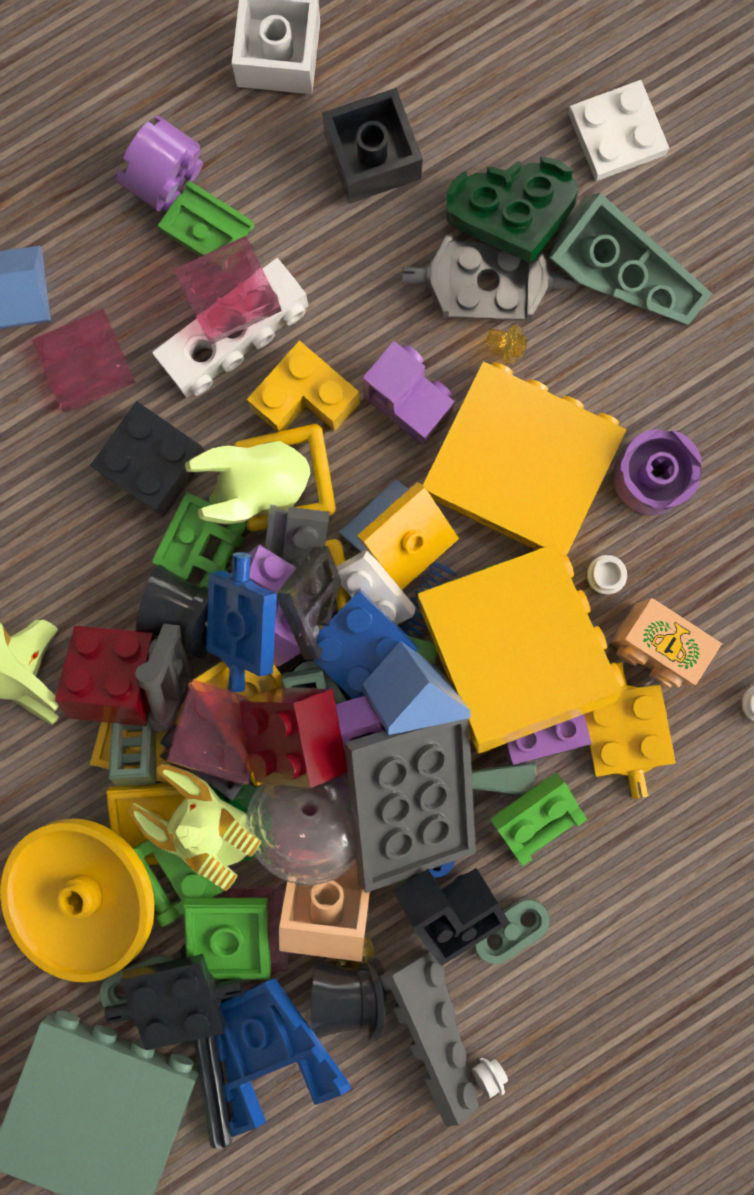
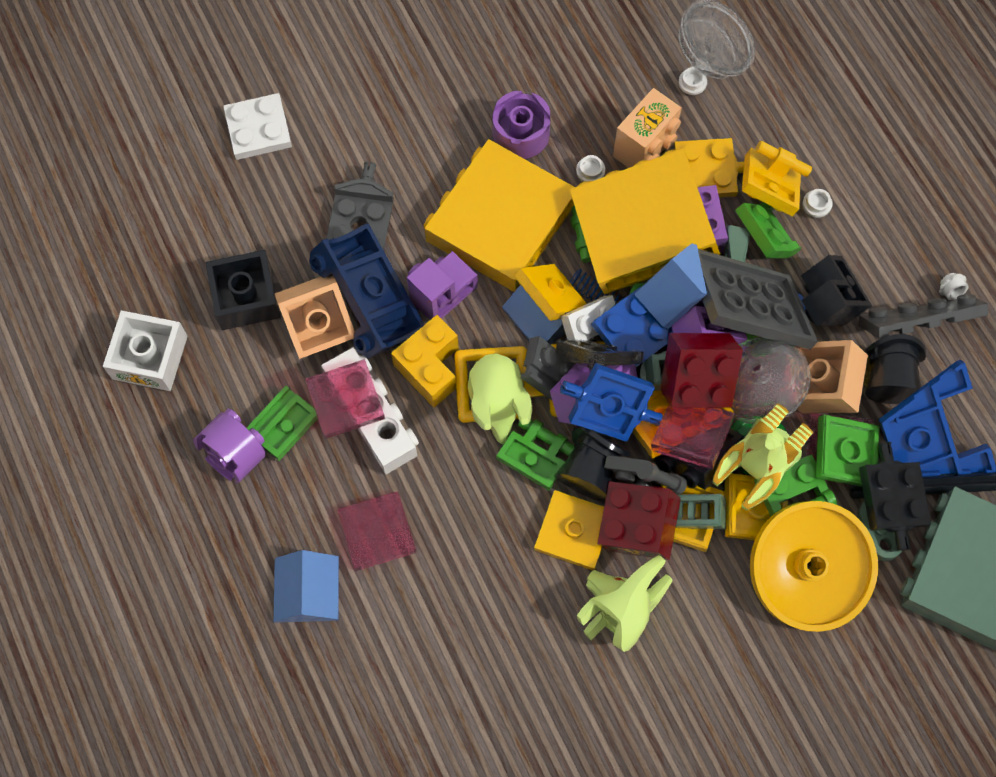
camera: 85 degrees left, 15 degrees down
(103, 594) = (571, 530): none -> yellow plate
(148, 459) = (467, 480): black brick -> none
(342, 238) = (315, 315): none -> light nougat brick
(381, 298) = (370, 288): none -> dark blue piece
(510, 344) = (410, 214): clear yellow plate -> none
(513, 206) = (307, 197): dark green plate -> none
(516, 935) = (851, 254): sand green plate -> none
(593, 886) = (817, 203): none -> white plate
(613, 823) = (774, 177): none -> yellow plate
(617, 258) = (360, 131): sand green wedge -> none

